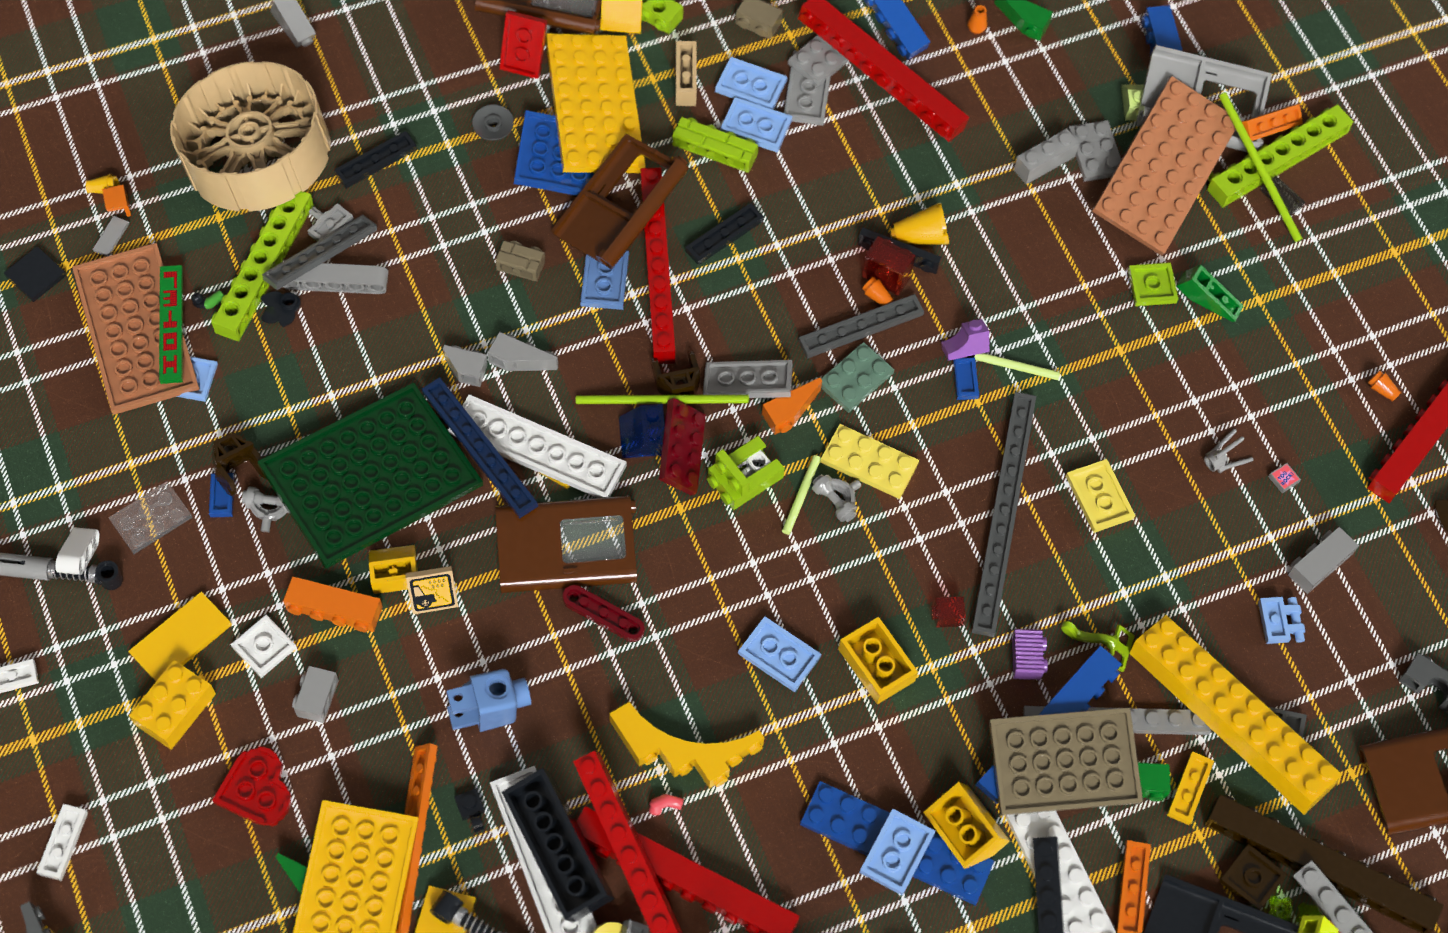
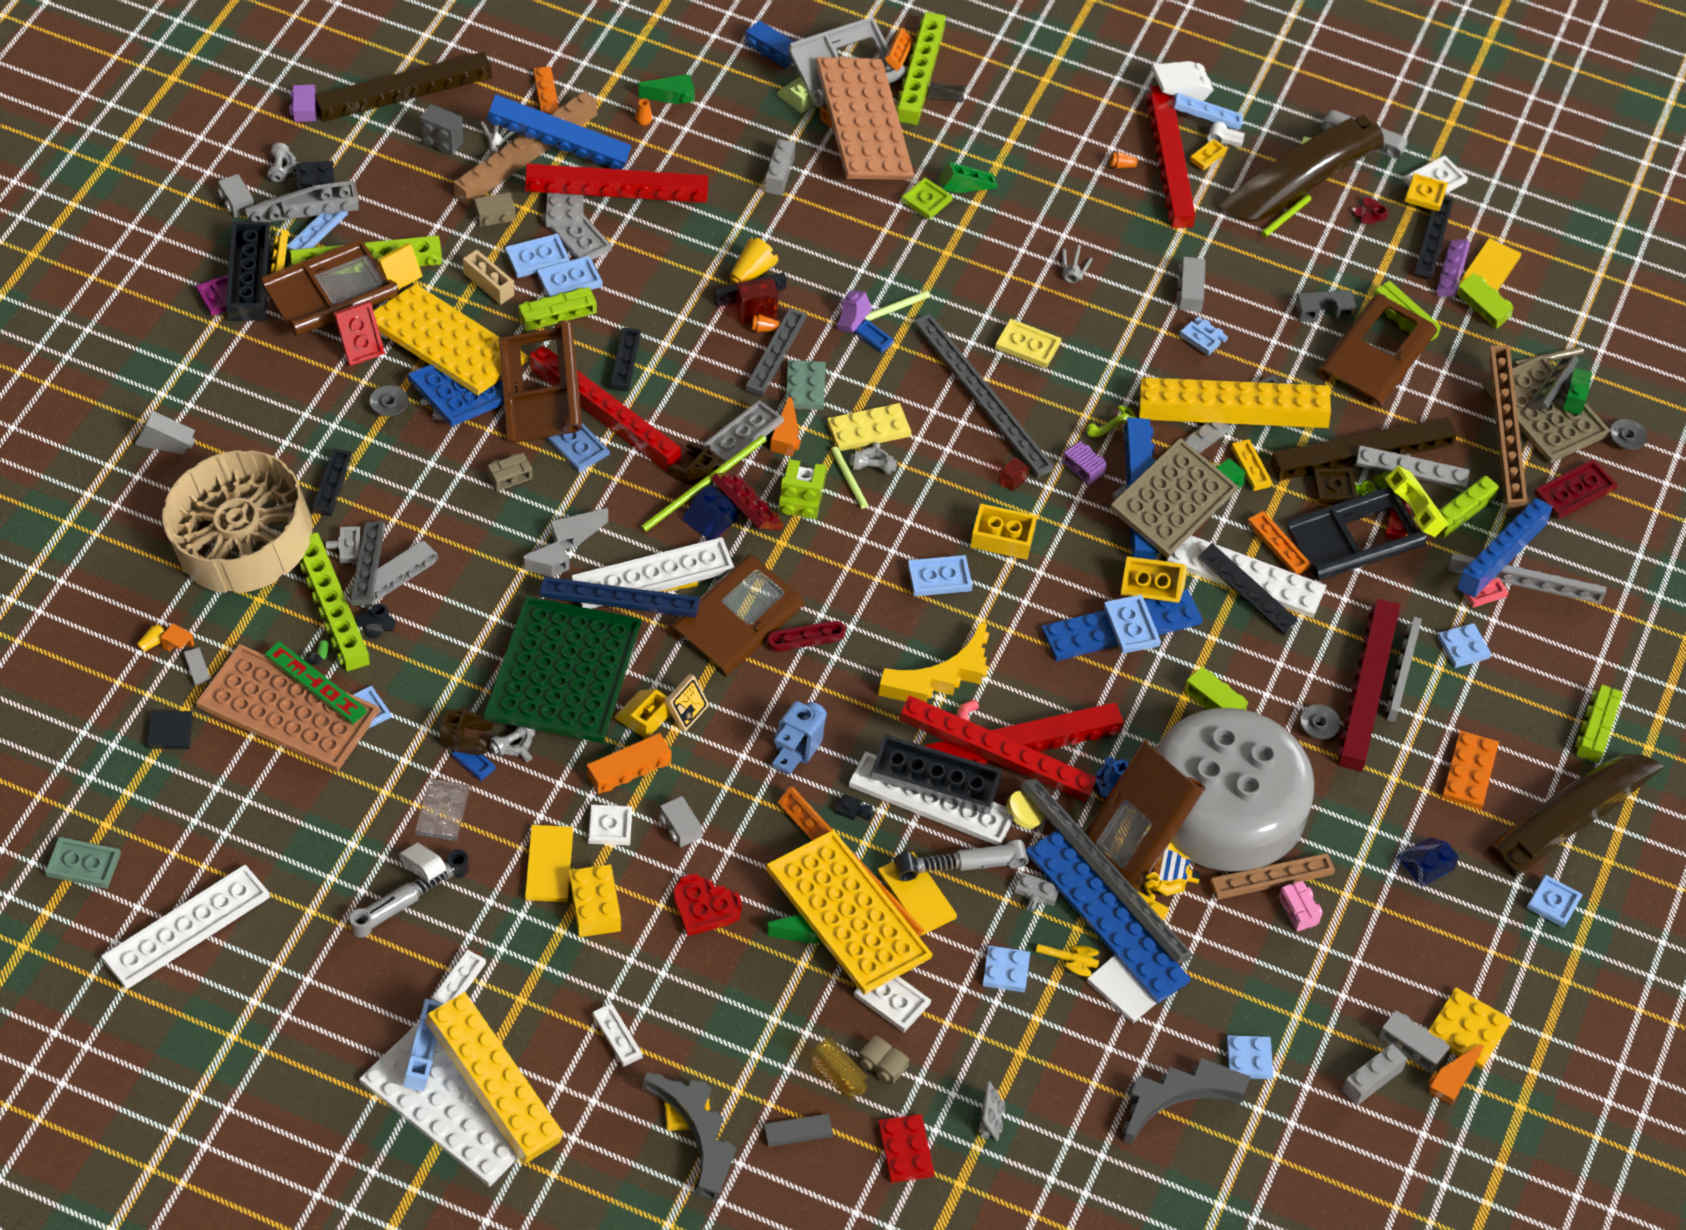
camera: 45 degrees left, 10 degrees down
(1096, 151) = (809, 144): light grey plate -> none
(1260, 167) = (921, 80): lime piece -> none
(1284, 478) = (1121, 255): tile -> none

